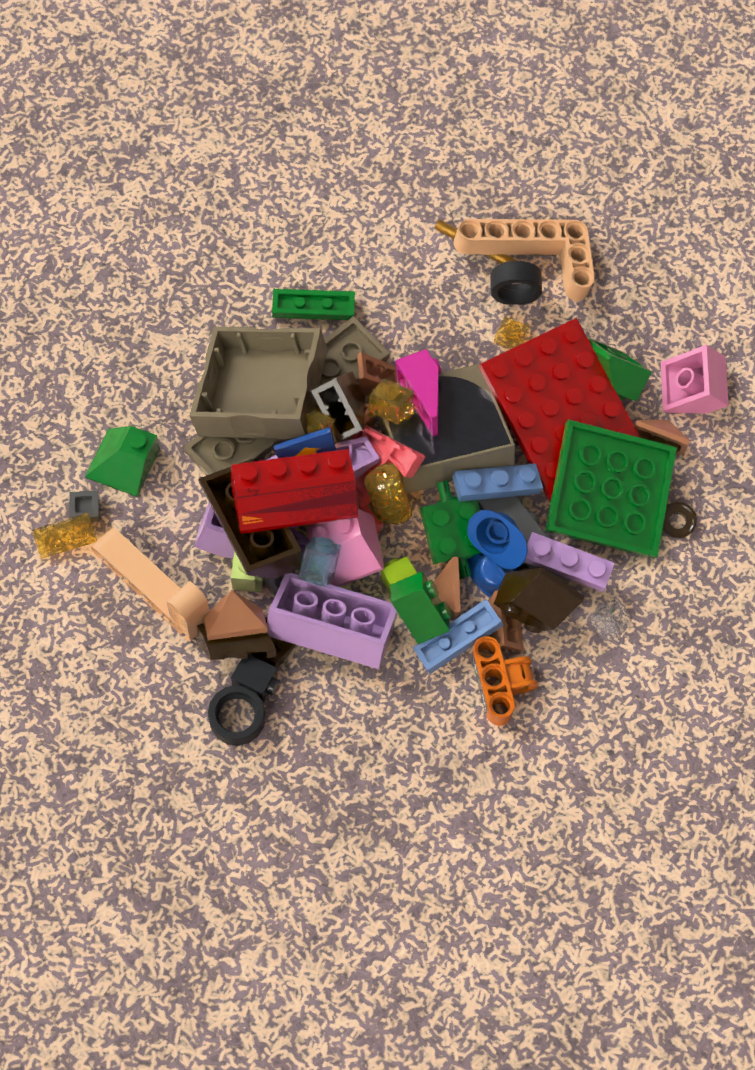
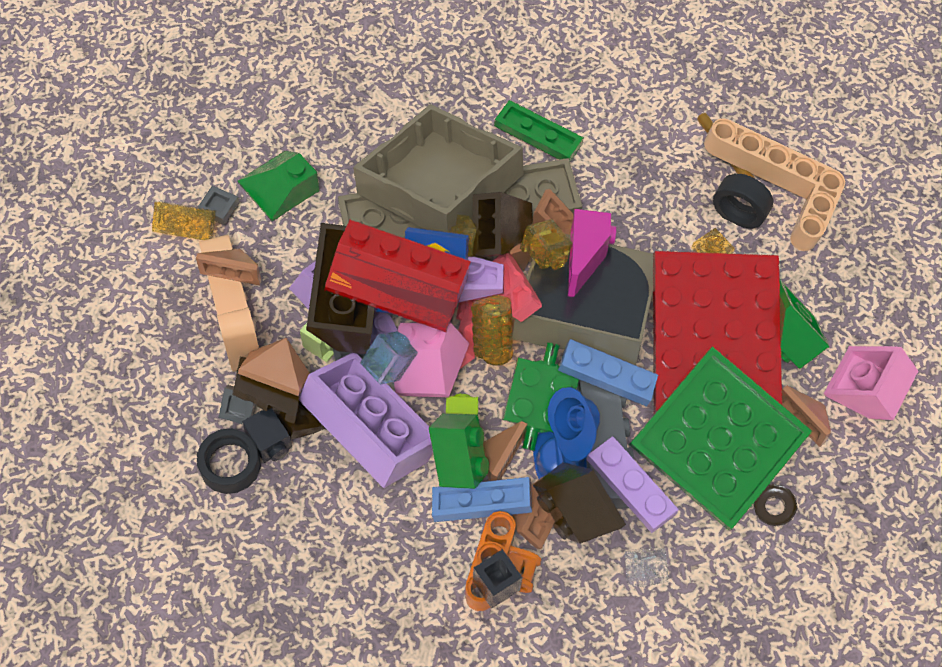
camera: 30 degrees right, 5 degrees down
(138, 552) = (229, 265): none -> nougat slope
(214, 670) = (234, 408): none -> dark grey plate
(515, 691) = (497, 578): none -> black brick

